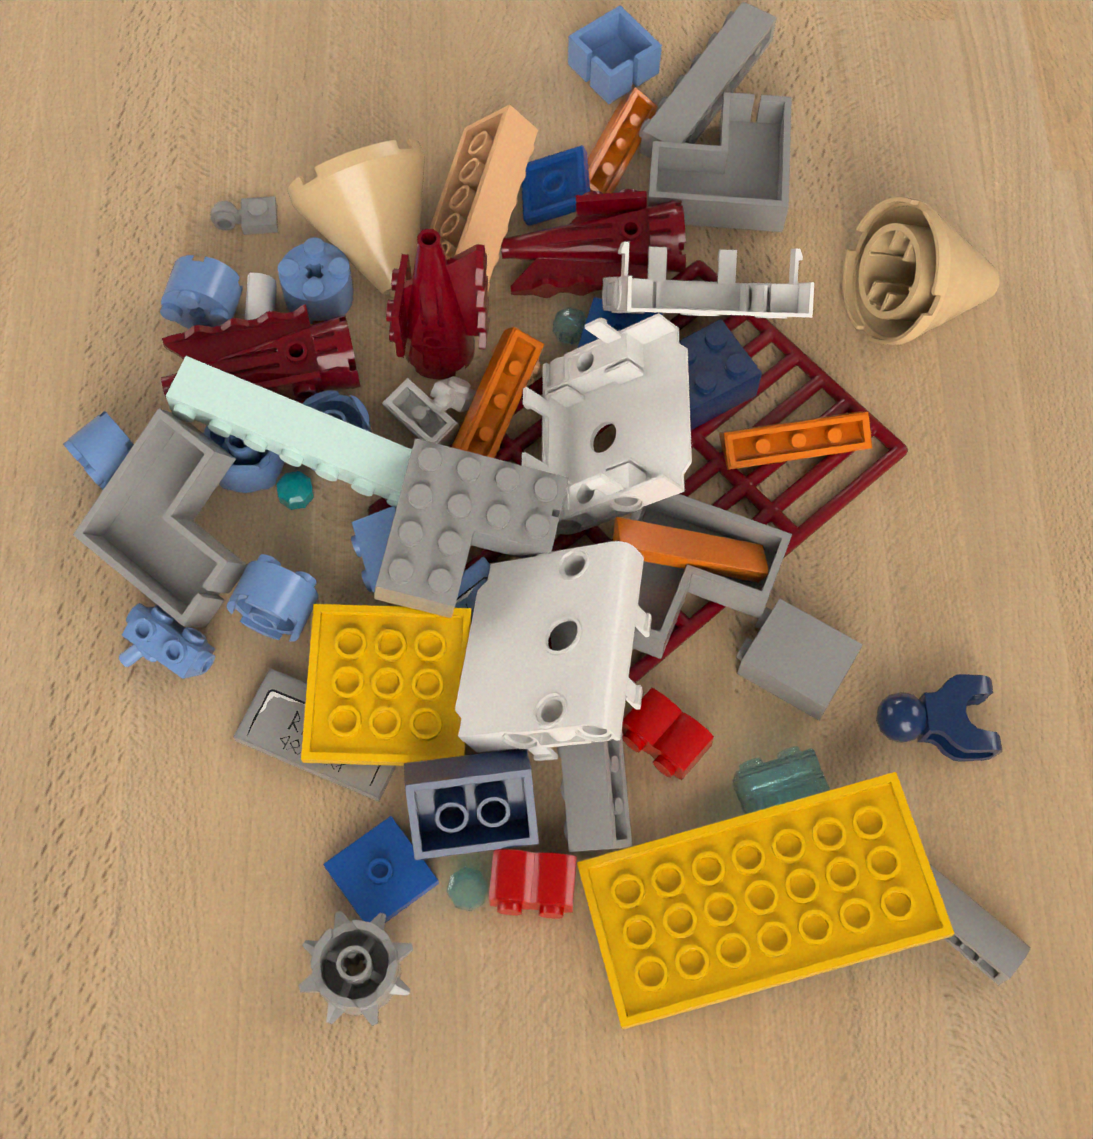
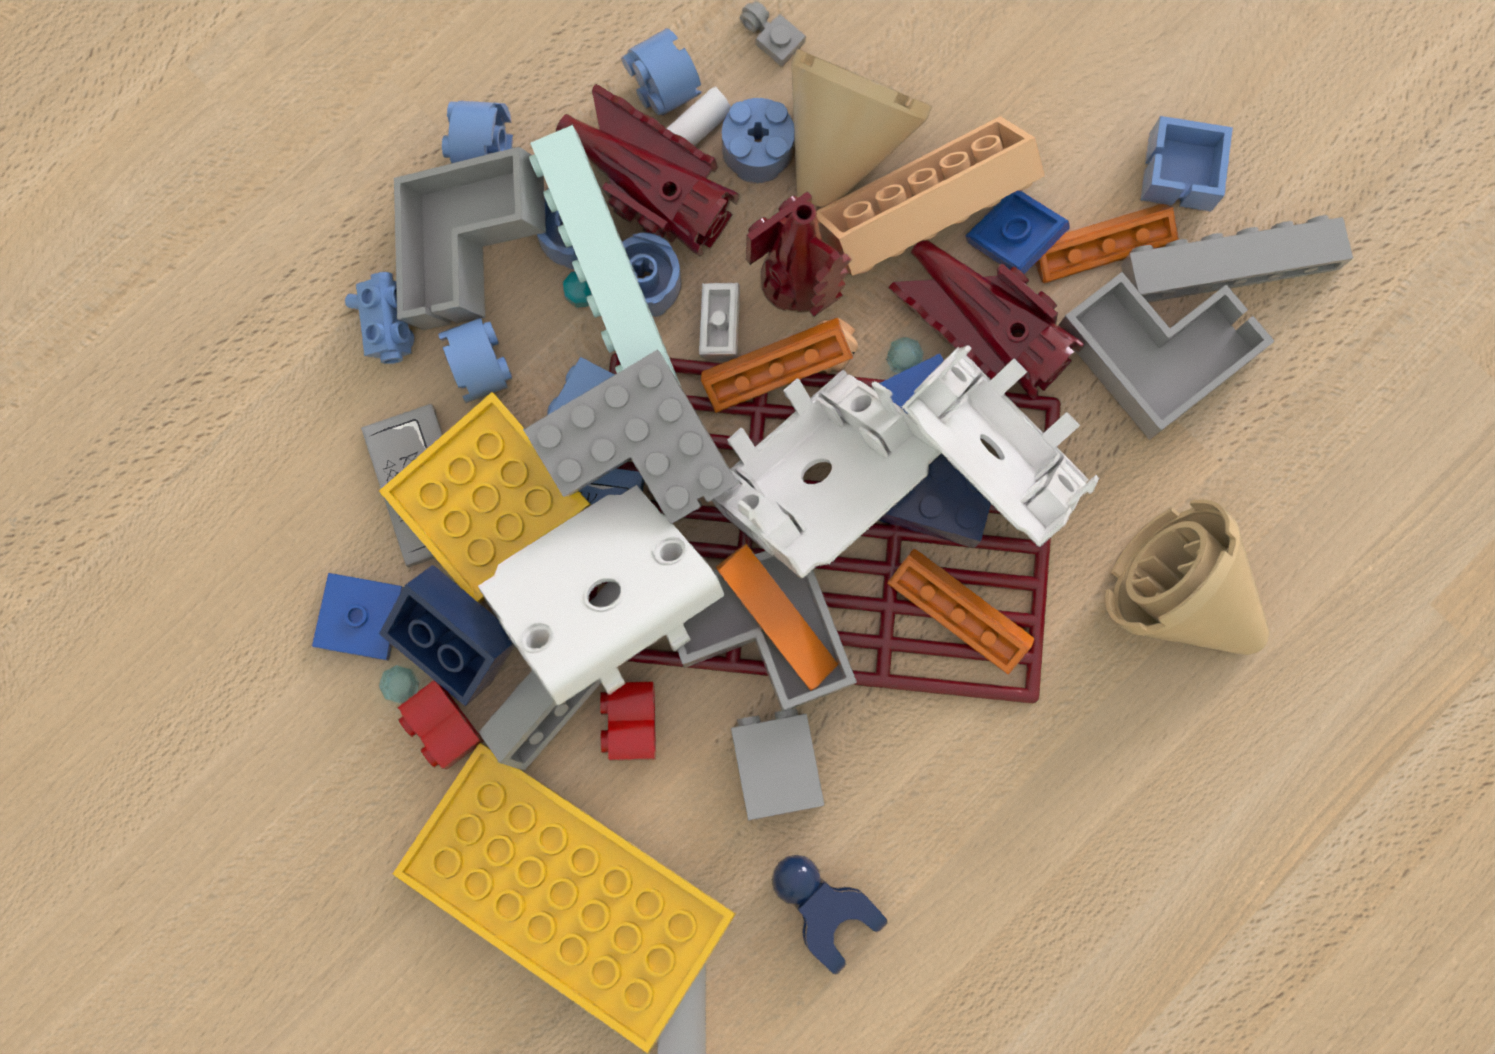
camera: 45 degrees right, 15 degrees up
(348, 945) = (256, 651): light grey brick -> none
(451, 393) = (757, 325): white plate -> none
(779, 781) = (665, 835): clear light blue brick -> none

